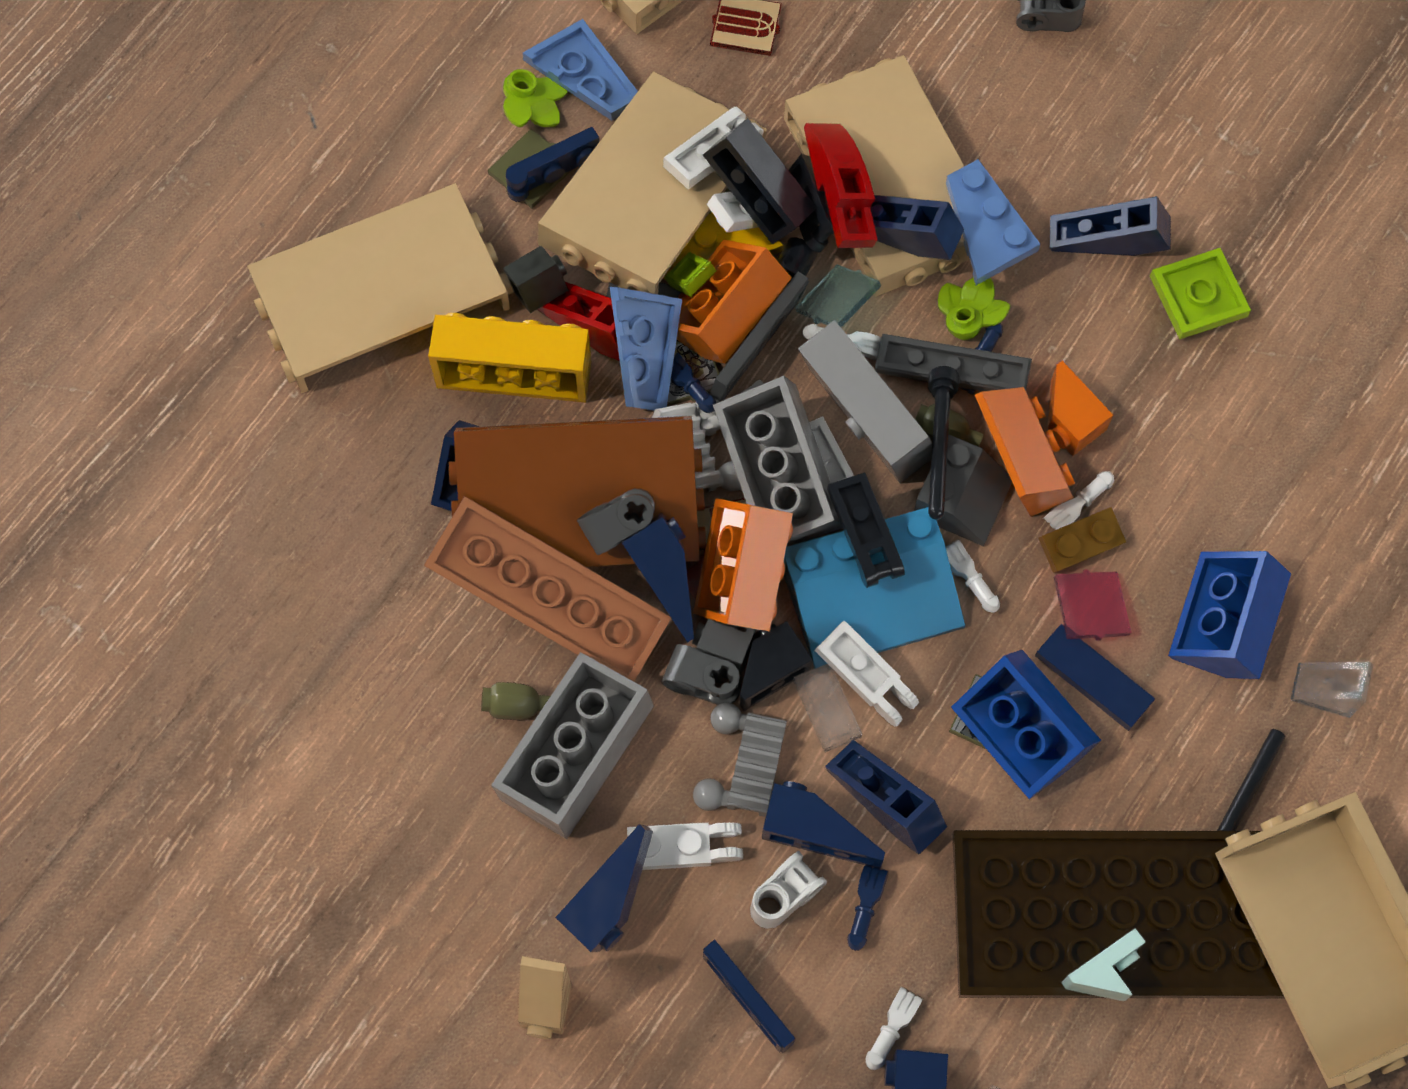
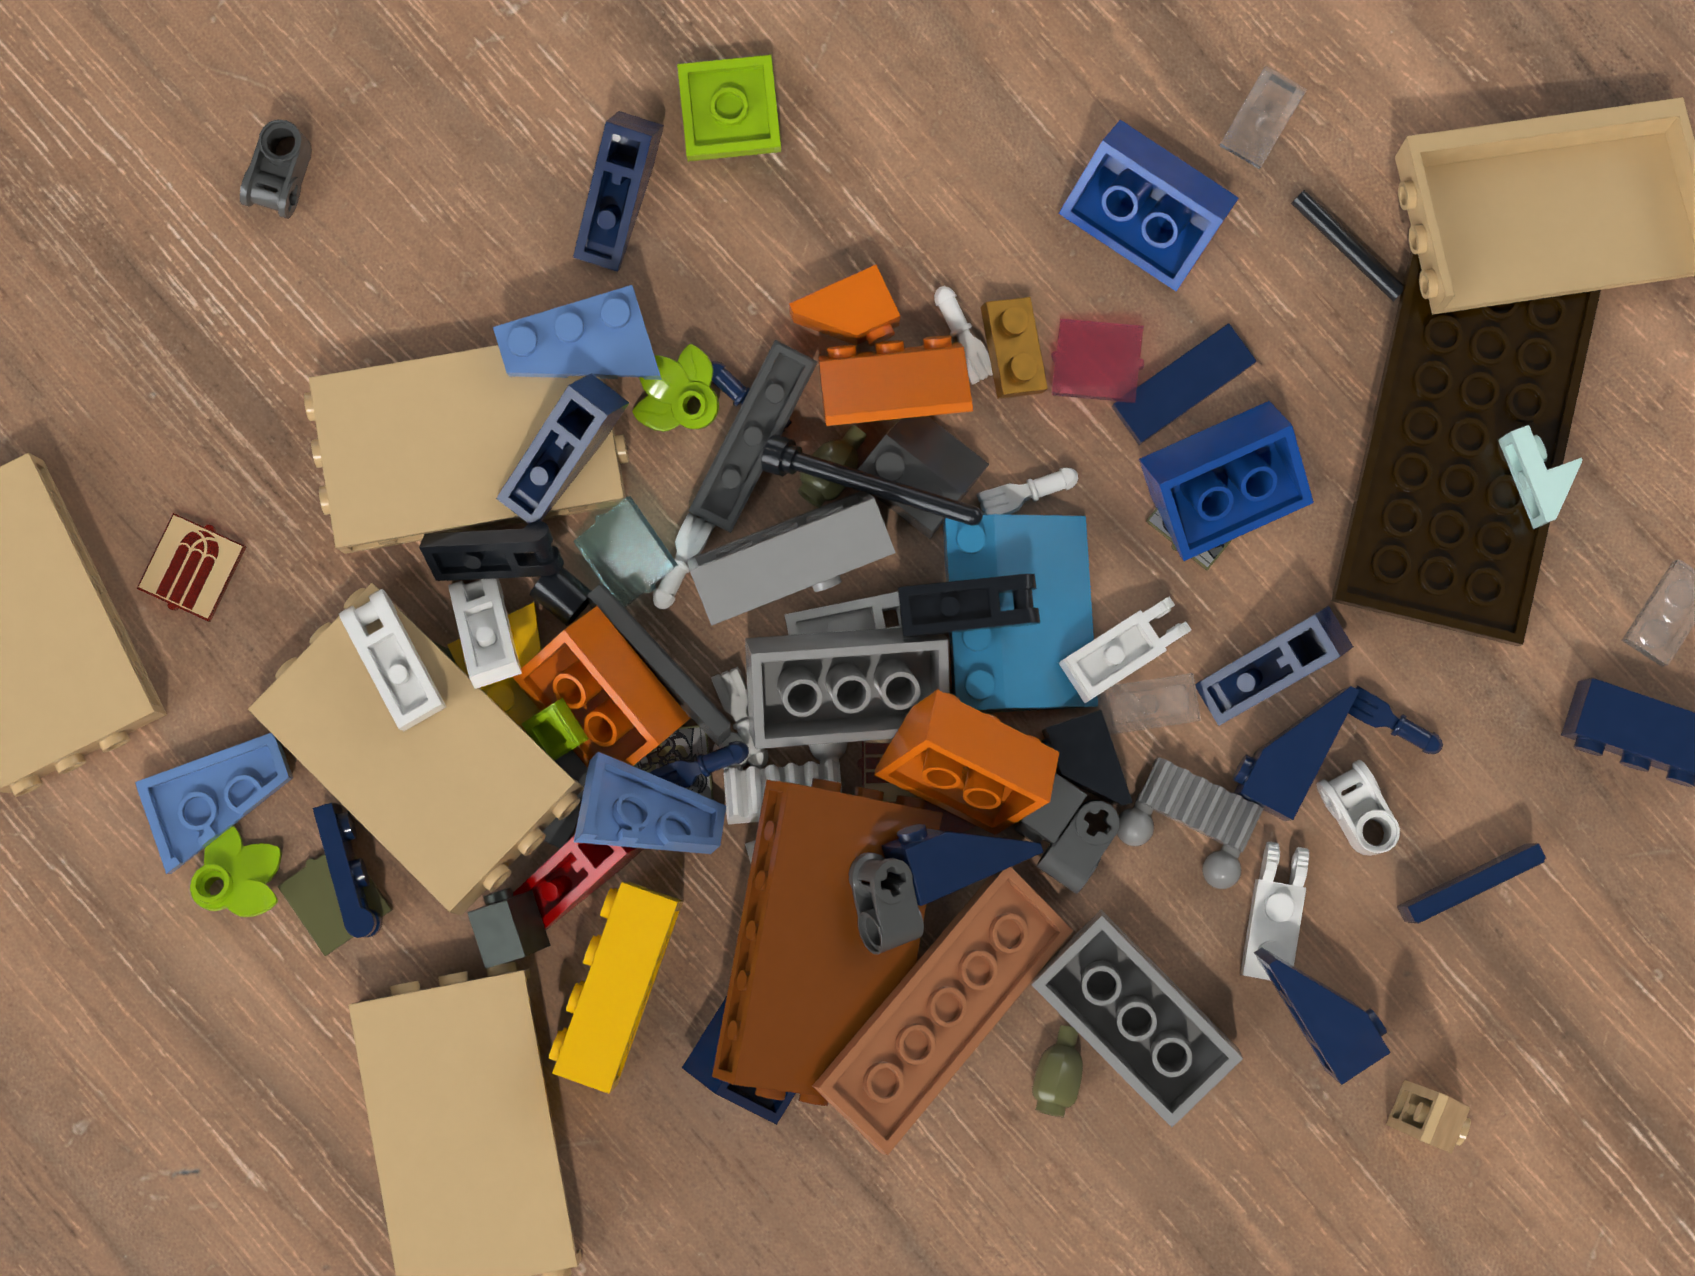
camera: 80 degrees left, 15 degrees up
(760, 181) = (464, 613): black brick -> none
(846, 183) = (488, 504): red slope -> none
(899, 1016) = (1523, 717): white piece -> none

